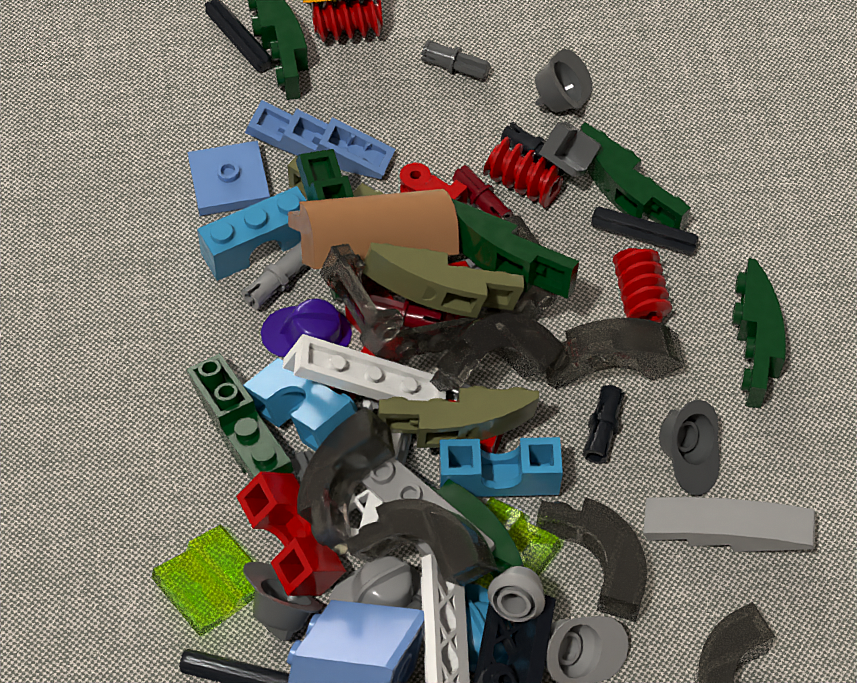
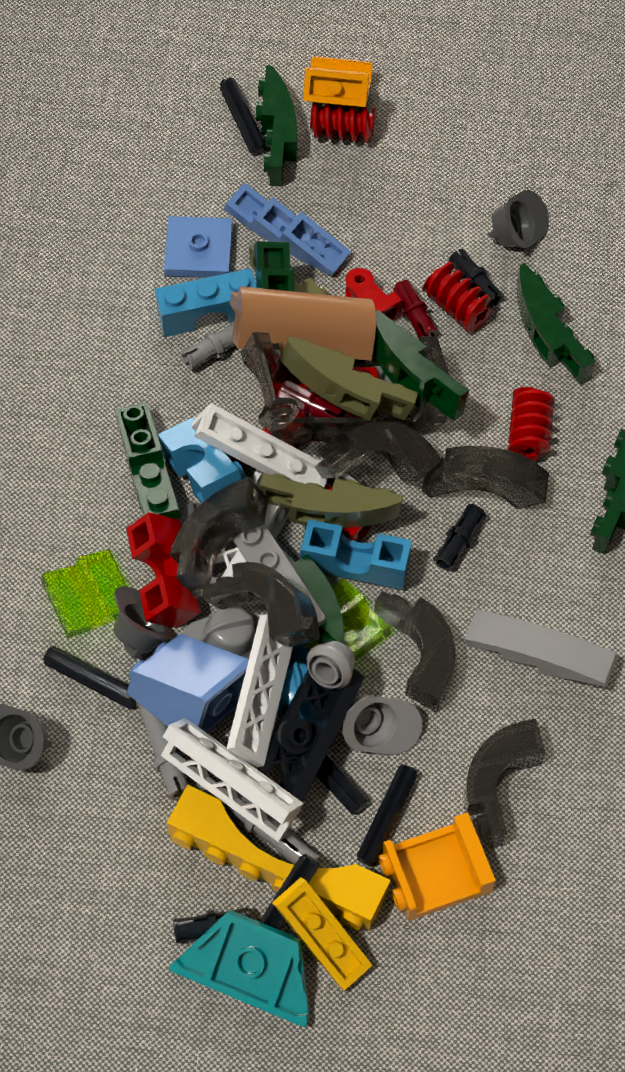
camera: 15 degrees right, 5 degrees up
(312, 318) = (231, 392): dark purple piece -> none
(454, 60) = (428, 179): dark grey axle -> none
(570, 149) = (502, 285): dark grey panel -> none
(644, 230) = (551, 373): black axle -> none
(691, 442) = (529, 574): dark grey piece -> none

